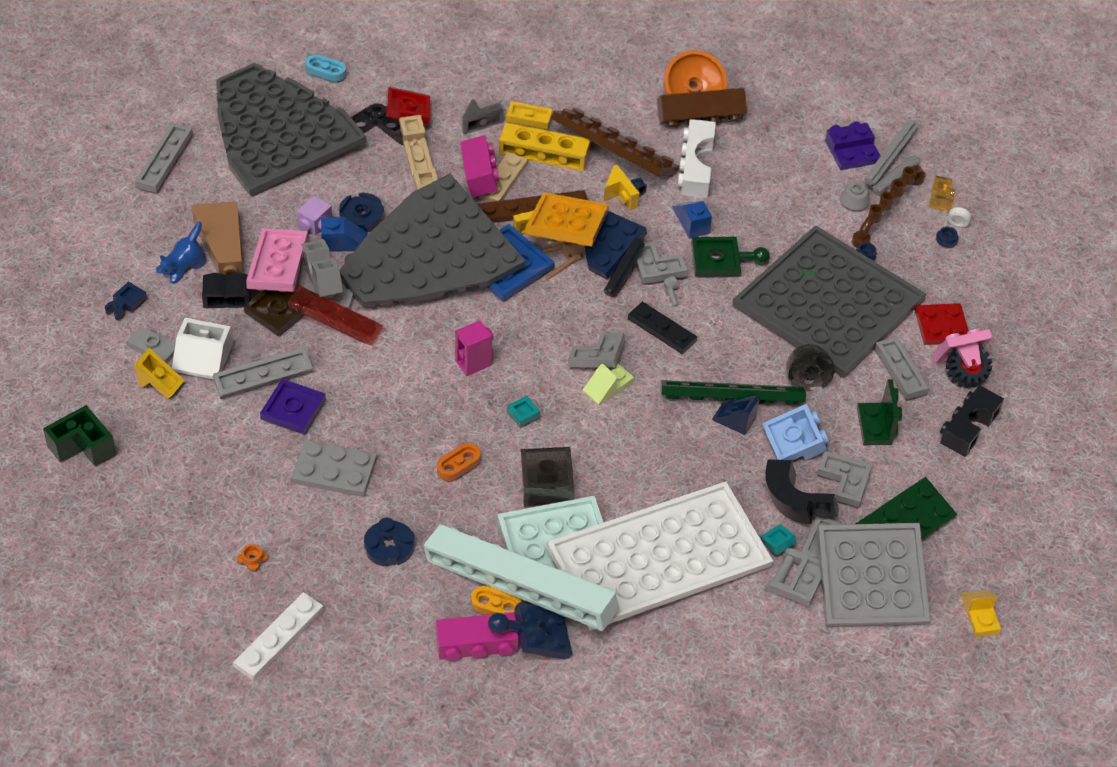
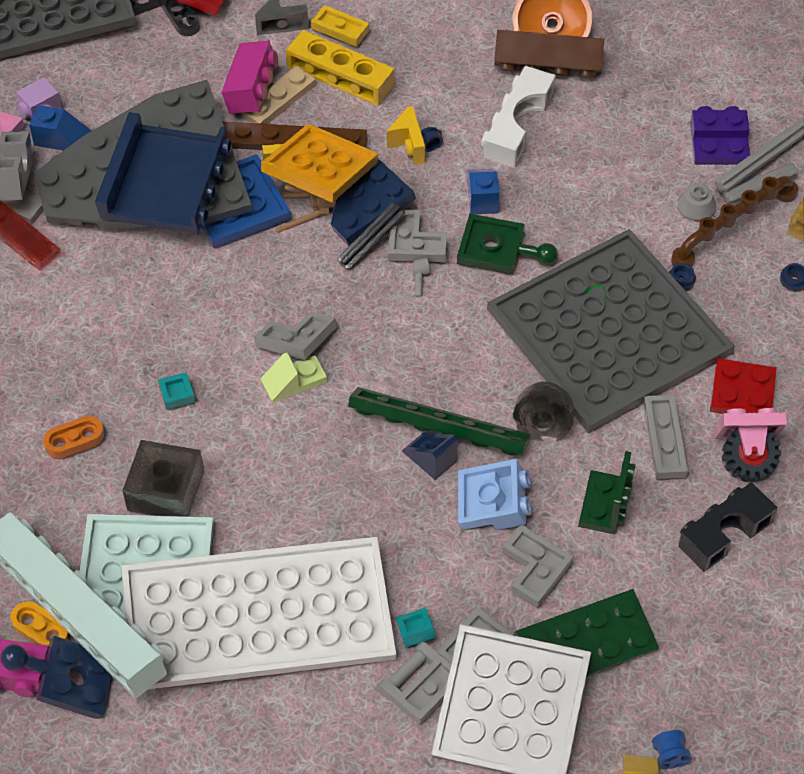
camera: 20 degrees right, 5 degrees up
(364, 201) = (86, 96): dark blue plate -> none
(417, 151) = (190, 44): tan slope -> none
(452, 253) = (162, 176): none -> dark blue panel
(473, 347) = (146, 299): dark pink brick -> none
(612, 140) = (425, 78): reddish brown plate -> none
(662, 327) = (389, 320): black plate -> none
(794, 503) = (445, 559): black arch -> none
(995, 580) = (671, 749): none -> blue wheel

